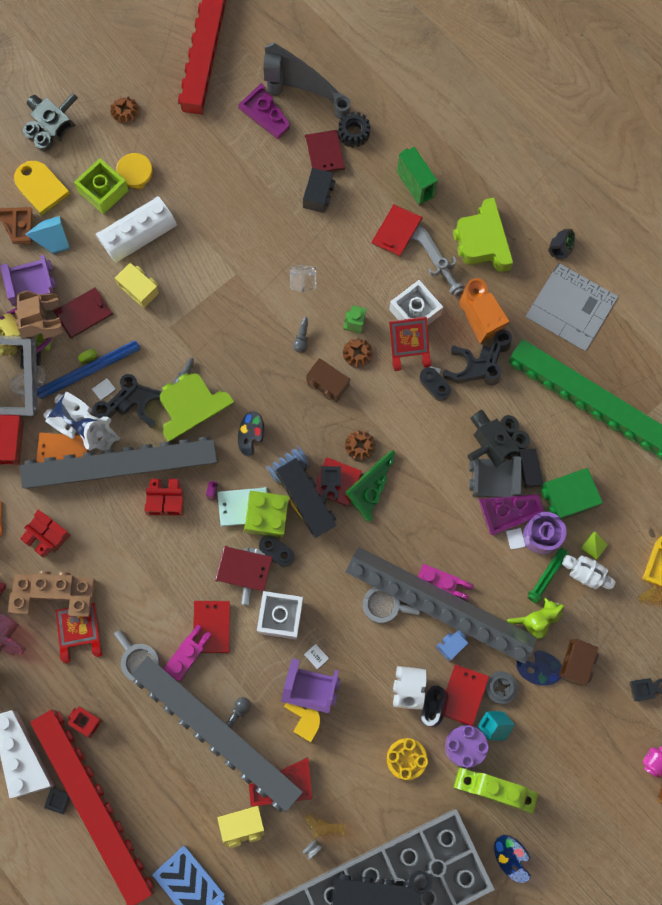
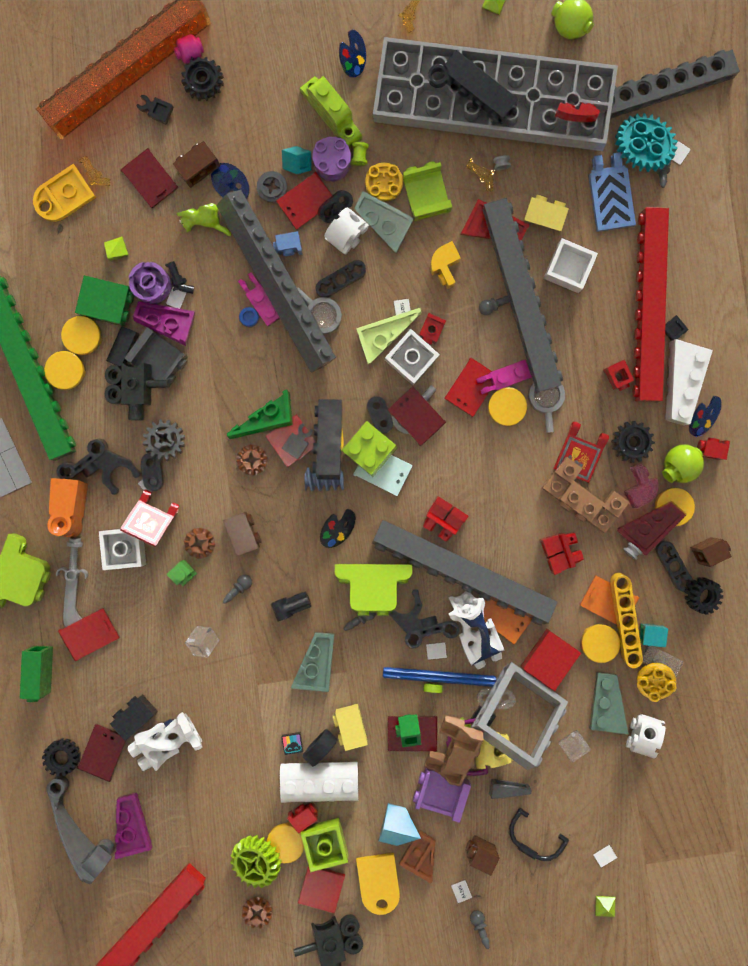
camera: 145 degrees left, 15 degrees up
(25, 667) = (642, 437): none -> black gear
(82, 154) = (321, 889): none -> red tile
(87, 309) = (408, 730): none -> green brick
(133, 196) = (303, 816): none -> red brick
(149, 142) = (267, 864): none -> lime gear
(152, 254) = (319, 748): none -> black tyre
(168, 628) = (507, 406): none -> yellow tile
(177, 246) = (292, 743): none -> tile
(189, 791) = (570, 265): none -> white piece
(197, 316) = (316, 665): none -> sand green wing
(211, 490) = (400, 501): magenta tile -> none
(252, 345) = (287, 607): none -> black piece
(278, 660) = (435, 322): none -> red brick
(284, 179) = (156, 740): none -> white hips
(310, 688) = (424, 282): medium lavender panel -> none
(321, 618) = (380, 334): none -> yellowish green wing
(363, 775) = (426, 191): none -> lime panel
(384, 724) = (384, 219): none -> sand green wing
(385, 662) = (355, 276): none -> black beam
(442, 405) = (169, 433): none -> dark grey gear
(443, 561) = (249, 317): none -> blue tile
(445, 769) = (359, 153): none -> lime bush
(523, 552) = (177, 280): none -> black piece
(535, 595) = (172, 248): green axle -> none
(562, 418) = (64, 370): none -> yellow tile
(570, 454) = (81, 335): none -> yellow tile
(588, 572) = (136, 228): white piece -> none
(610, 625) = (149, 178): none -> dark red container
(637, 738) = (201, 68): none -> black gear

